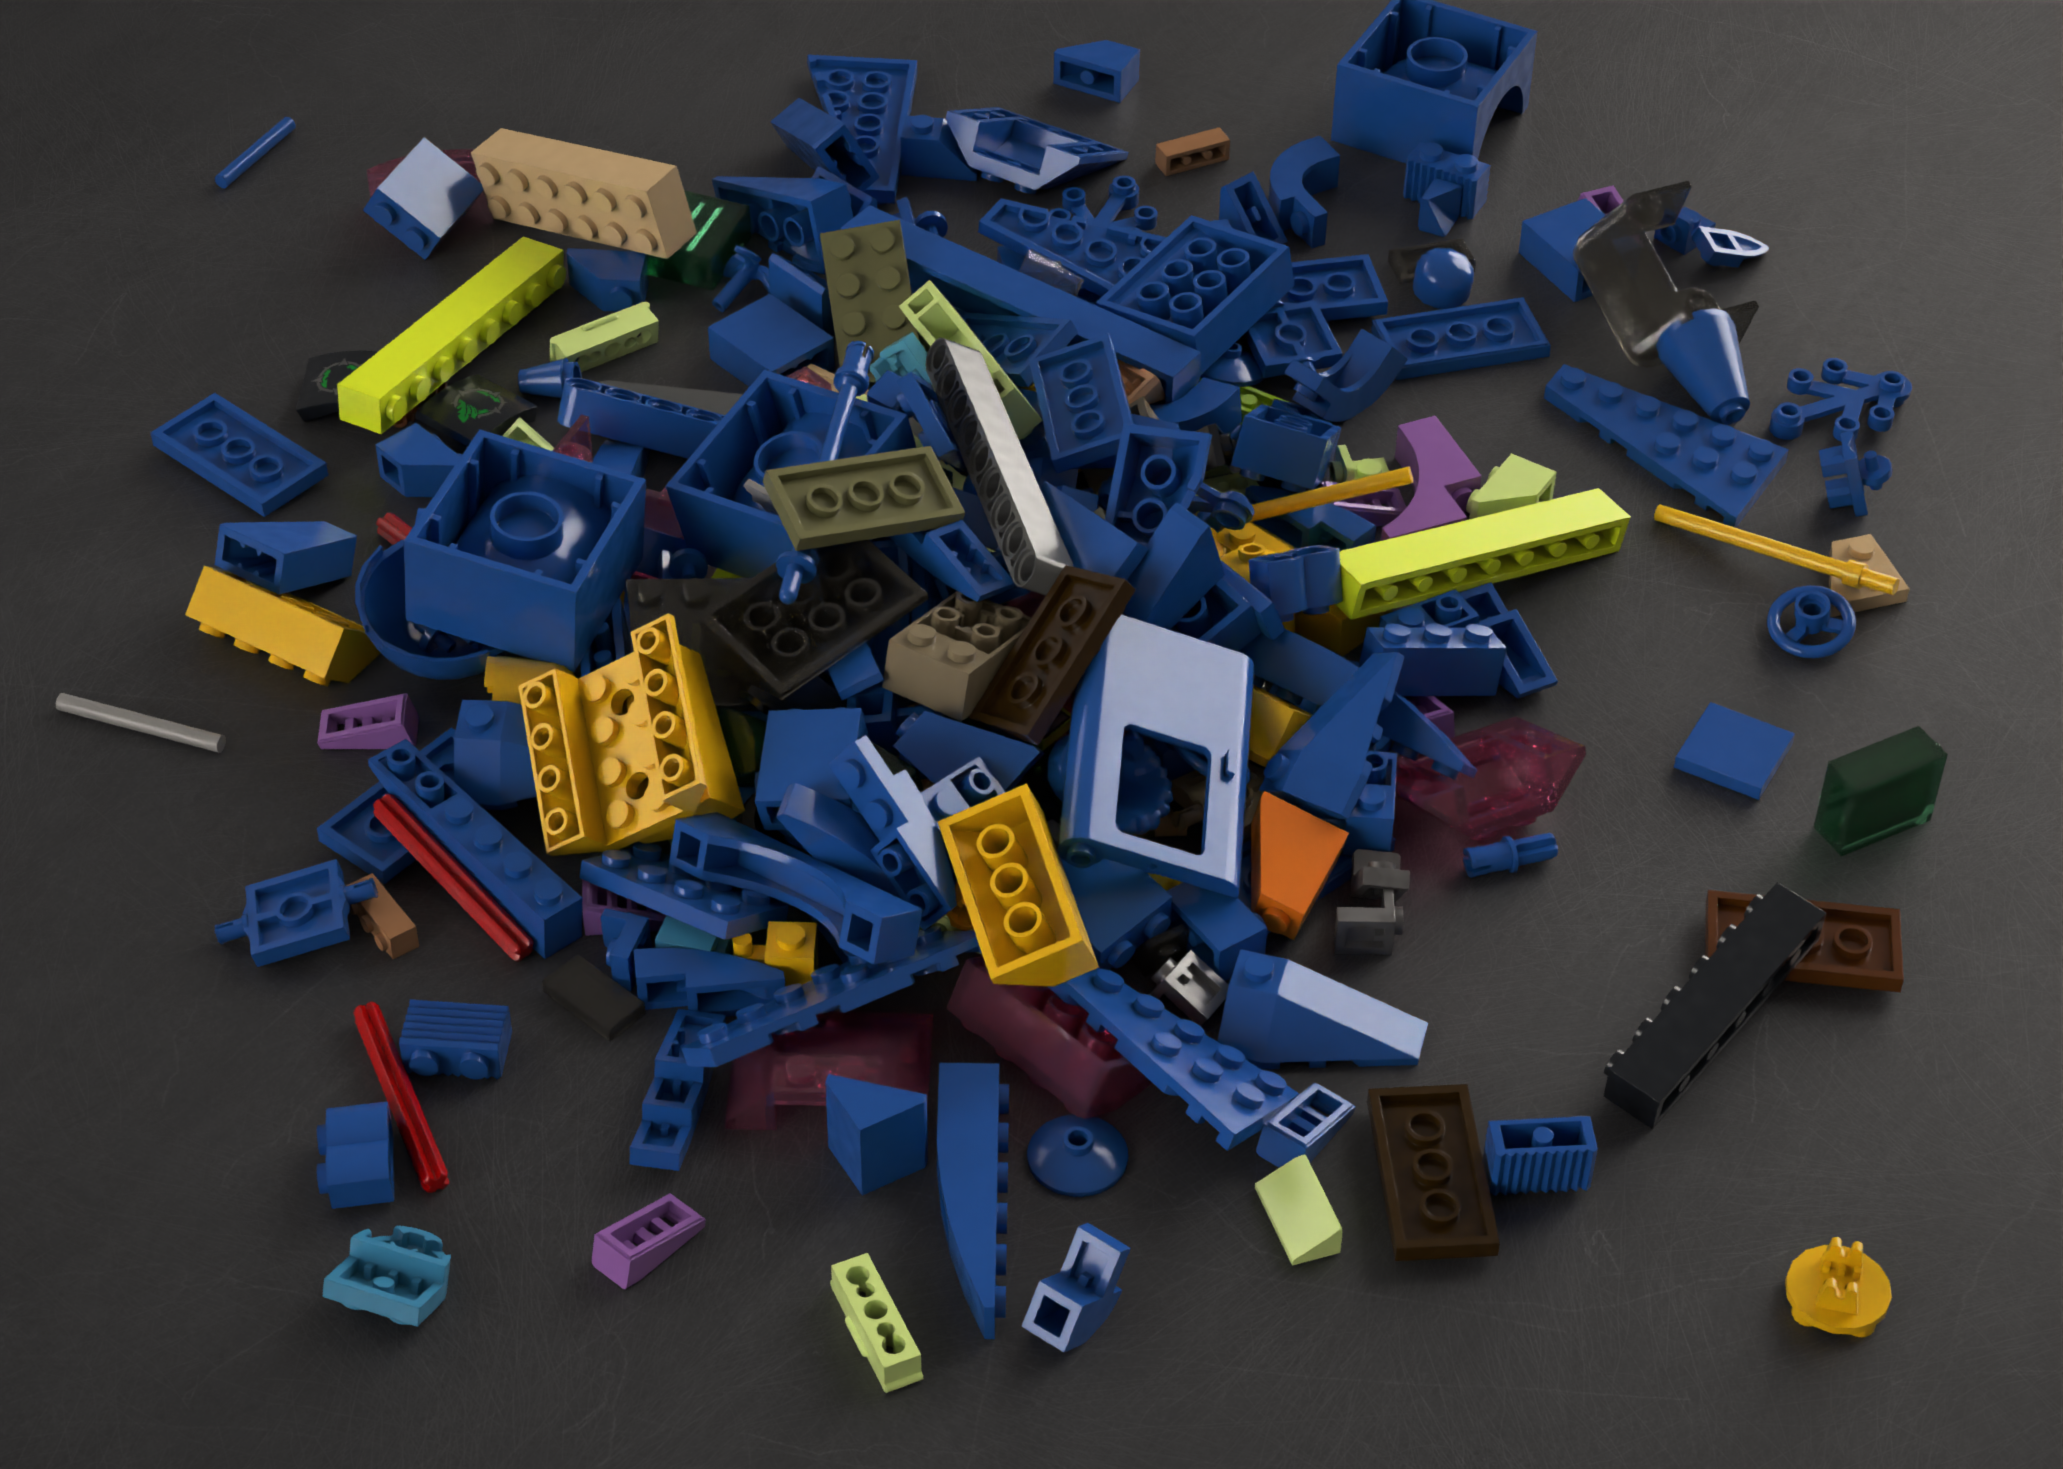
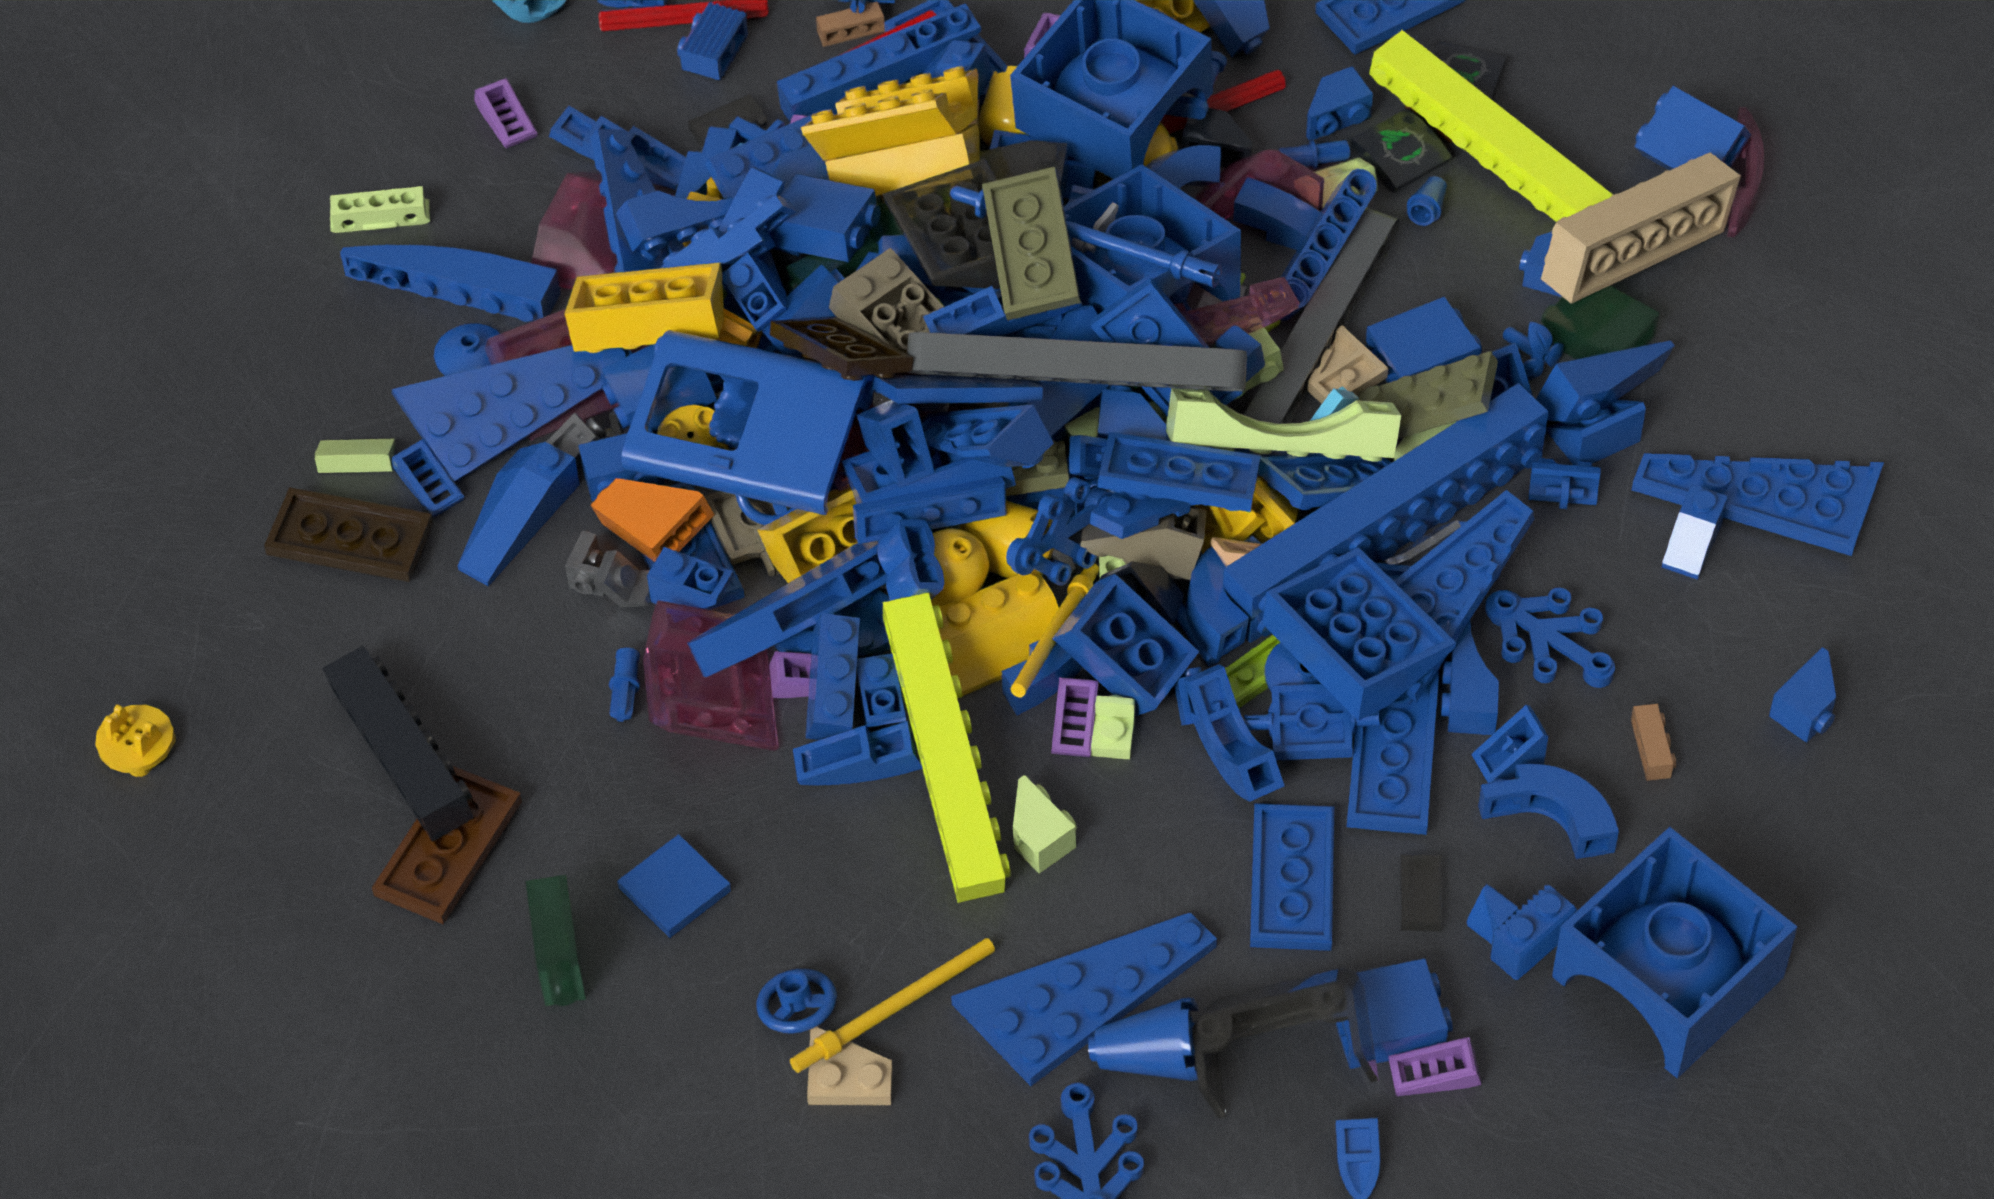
camera: 110 degrees right, 10 degrees up
(255, 152) = (1829, 59): blue bar -> none
(607, 337) = (1472, 243): yellowish green piece -> none
(824, 143) = (1694, 424): blue slope -> none
(875, 1131) = (516, 215): blue slope -> none
(1026, 149) = (1686, 604): blue slope -> none
(1082, 1296) = (337, 305): blue brick -> none
(1325, 760) = (731, 547): blue wedge -> none
(1440, 478) = (1072, 777): medium lavender arch -> none
(1443, 278) = (1377, 881): blue hair -> none
(1540, 1154) = (319, 587): blue brick -> none
(1680, 234) = (1406, 1128): blue bracket -> none
(1869, 471) = (955, 1092): blue hips -> none

